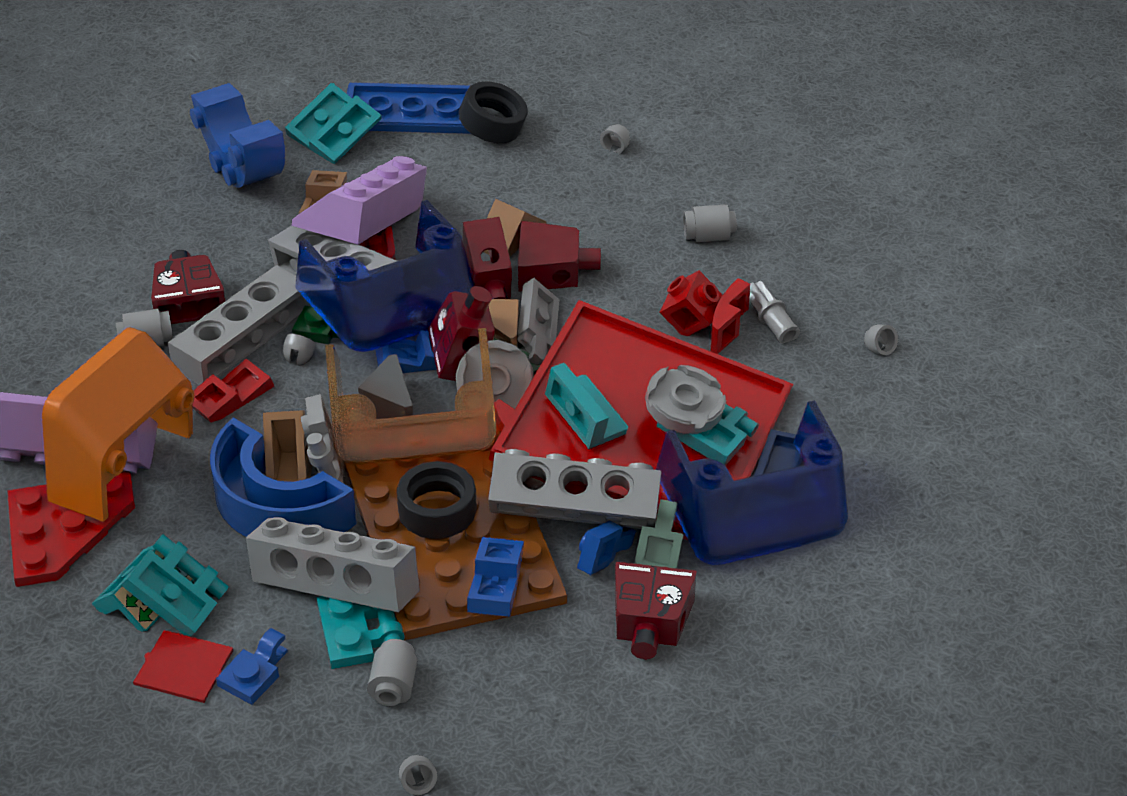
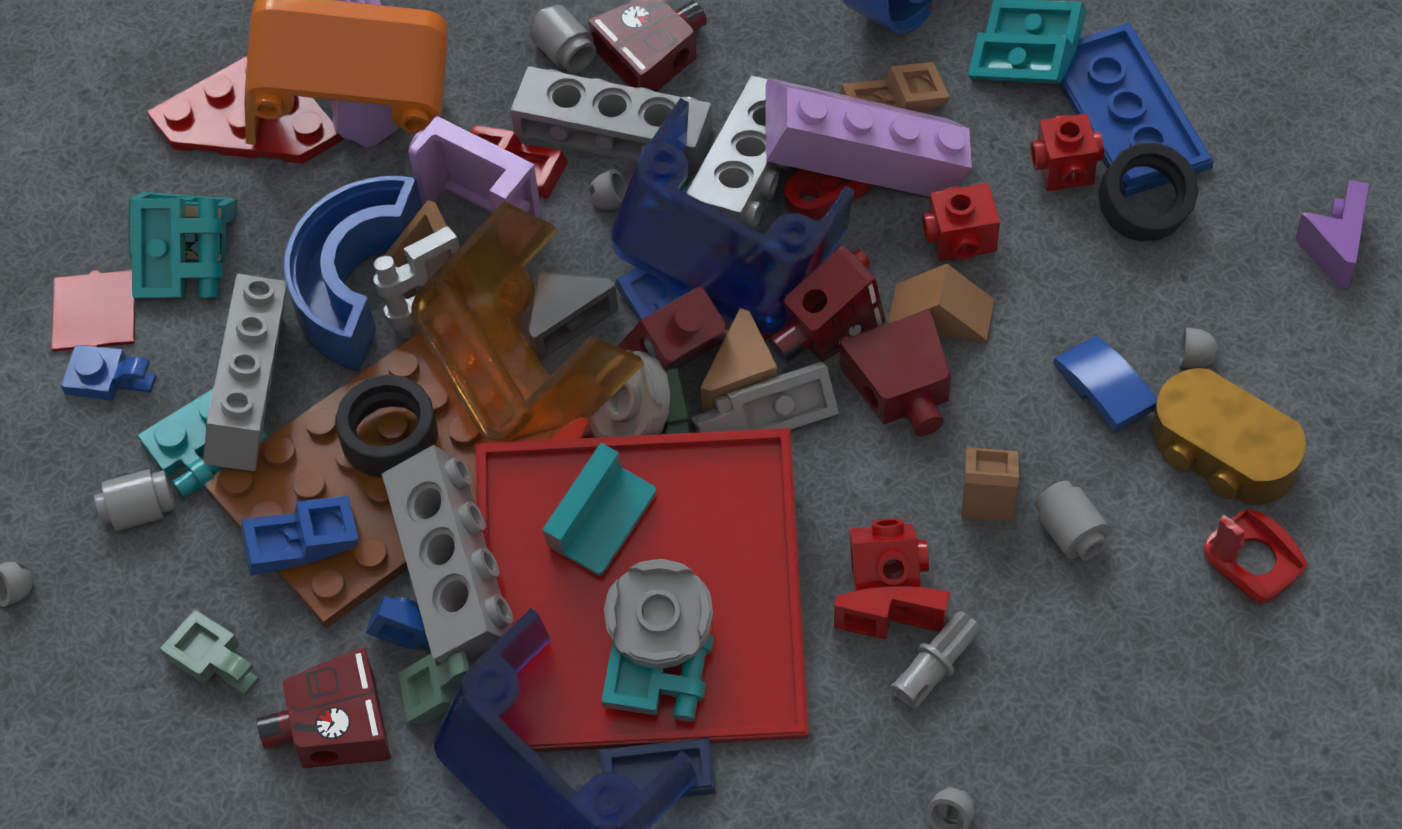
camera: 70 degrees right, 15 degrees up
(252, 386) = (471, 168): none -> lavender panel
(439, 128) = (1067, 151): none -> red brick
(458, 191) = (962, 222): none -> red brick
(554, 668) = (207, 648): none -> sand green plate
(578, 55) = (1336, 239): none -> medium lavender slope
(607, 179) = (1107, 381): none -> blue slope
(661, 246) = (990, 484): none -> medium nougat slope
(689, 144) = (1227, 437): none -> pearl gold brick
(769, 158) = (1251, 525): none -> red piece

